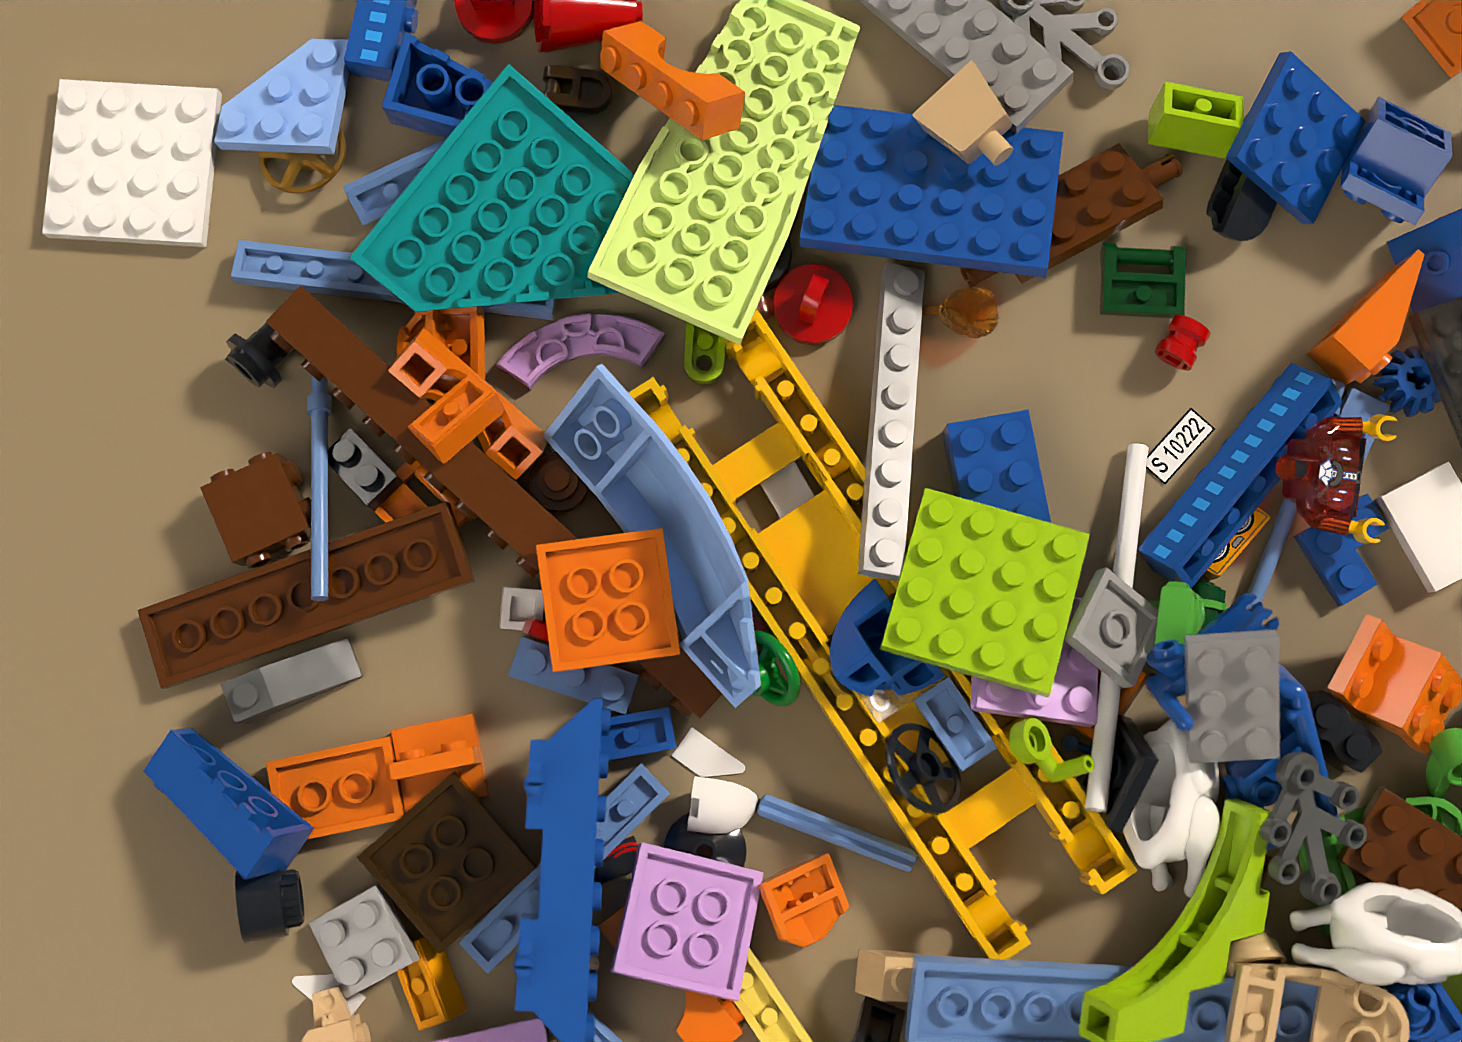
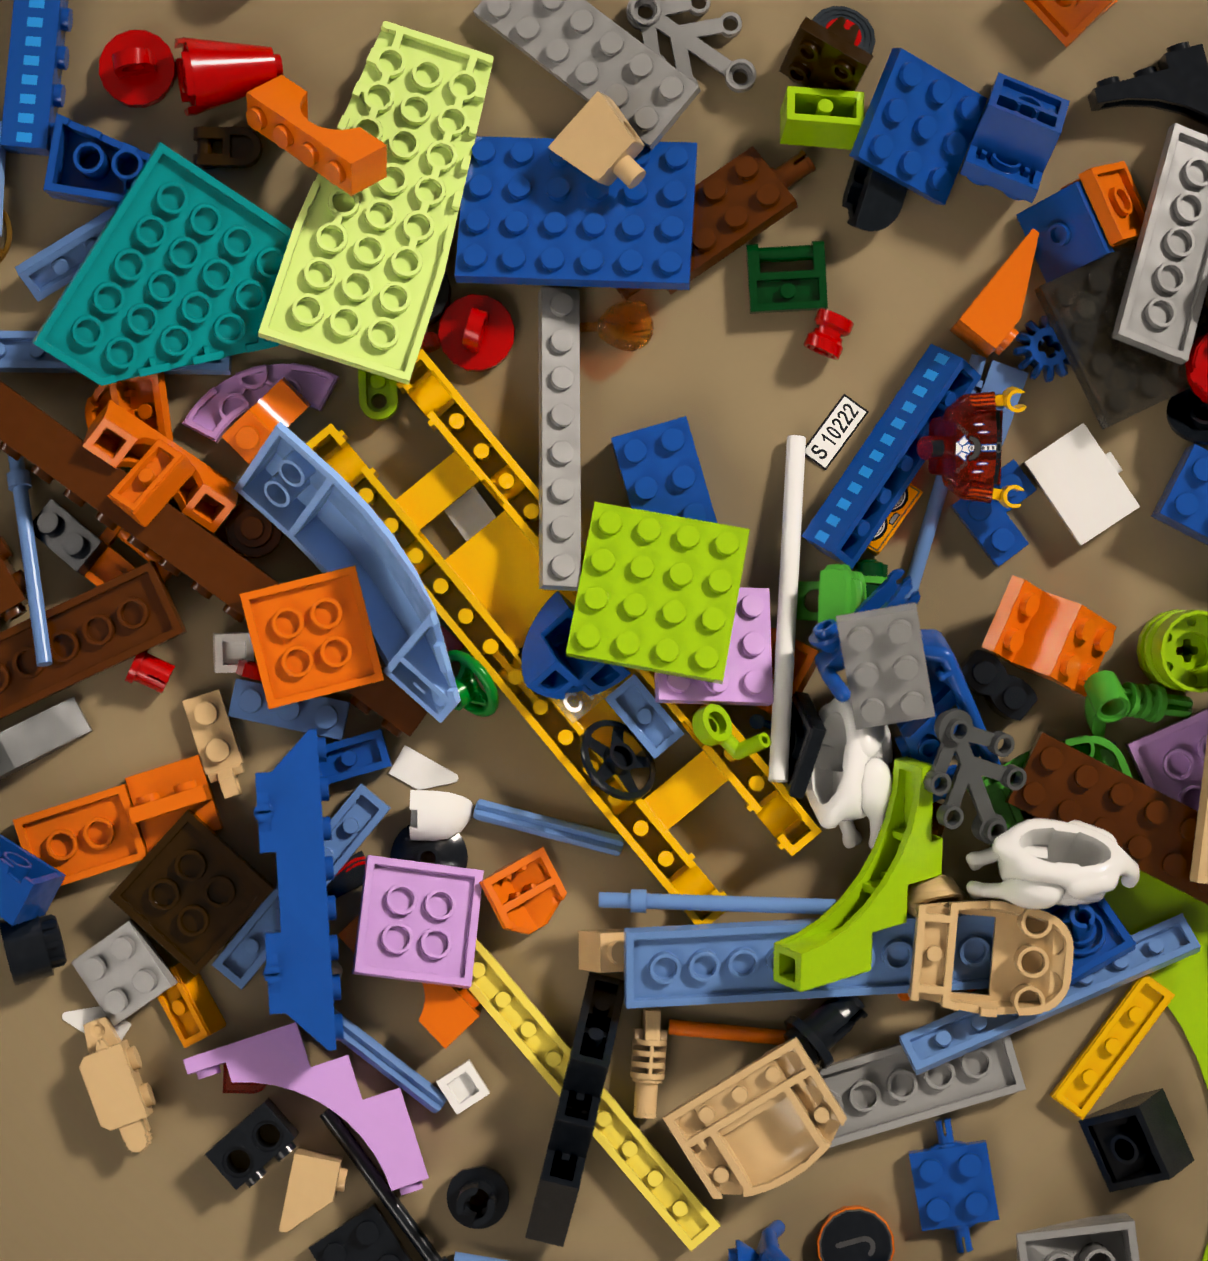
camera: 10 degrees left, 5 degrees up
(431, 619) = (150, 671): none -> red bush
(492, 701) = (216, 740): none -> tan hinge
(572, 370) = (256, 424): none -> orange arch
(932, 926) = (640, 900): none -> medium blue bar
(1113, 628) = (778, 613): light grey plate -> none
(1209, 53) = (831, 50): none -> dark brown plate

